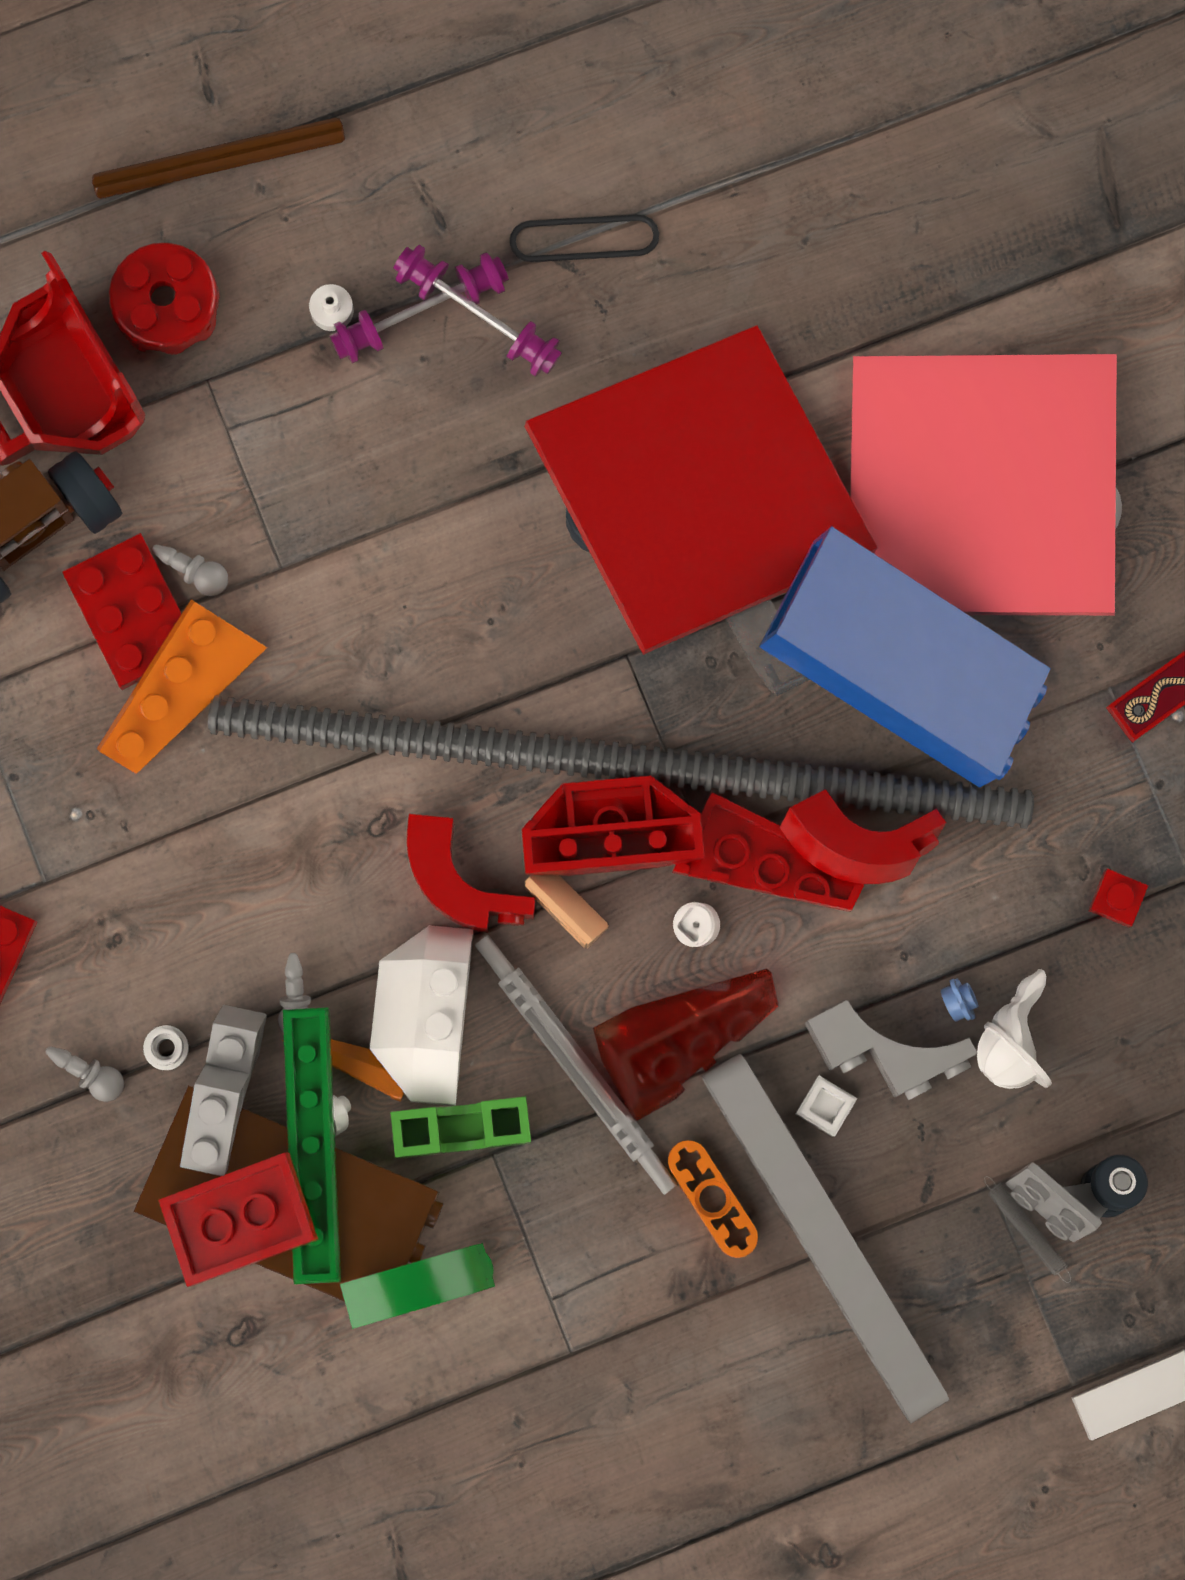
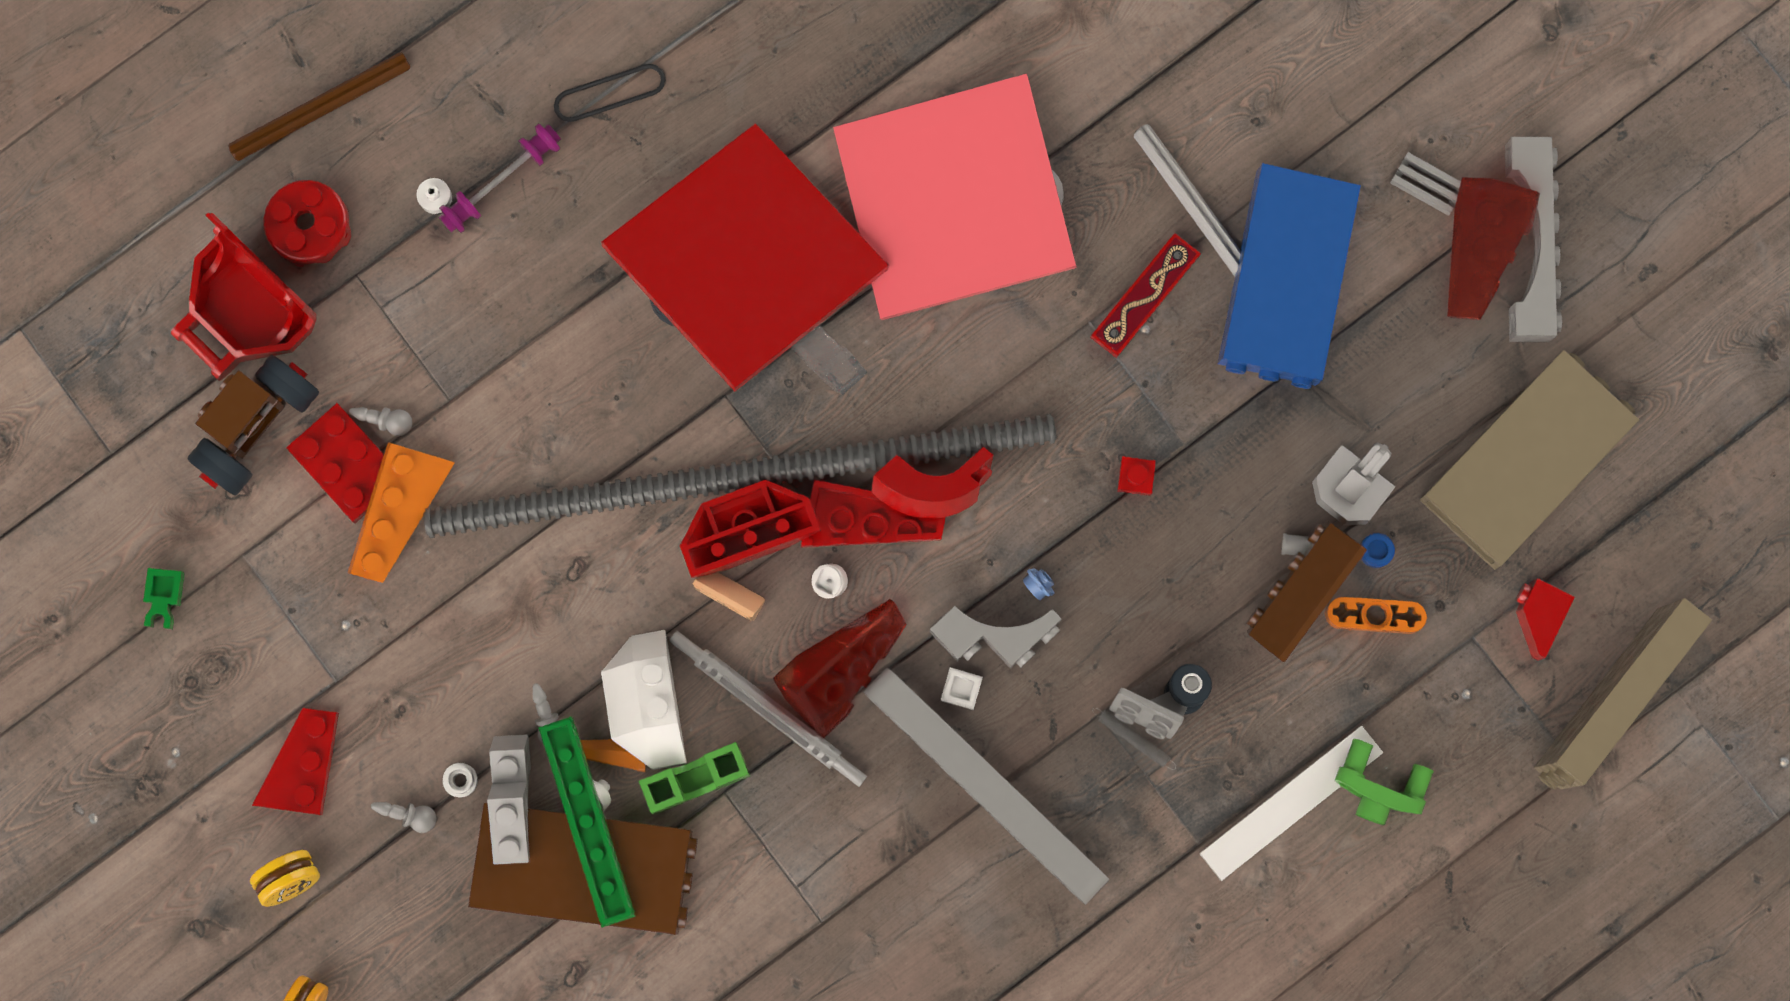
camera: 10 degrees left, 0 degrees up
(238, 1219) = (547, 891): red plate -> none
(414, 267) = (500, 153): magenta axle -> none
(418, 1285) = (693, 902): green arch -> none
(432, 866) = (619, 586): red arch -> none
(739, 1221) = (870, 769): orange beam -> none
(906, 658) = (931, 341): brick -> none
(1006, 1046) = (1081, 606): white piece -> none

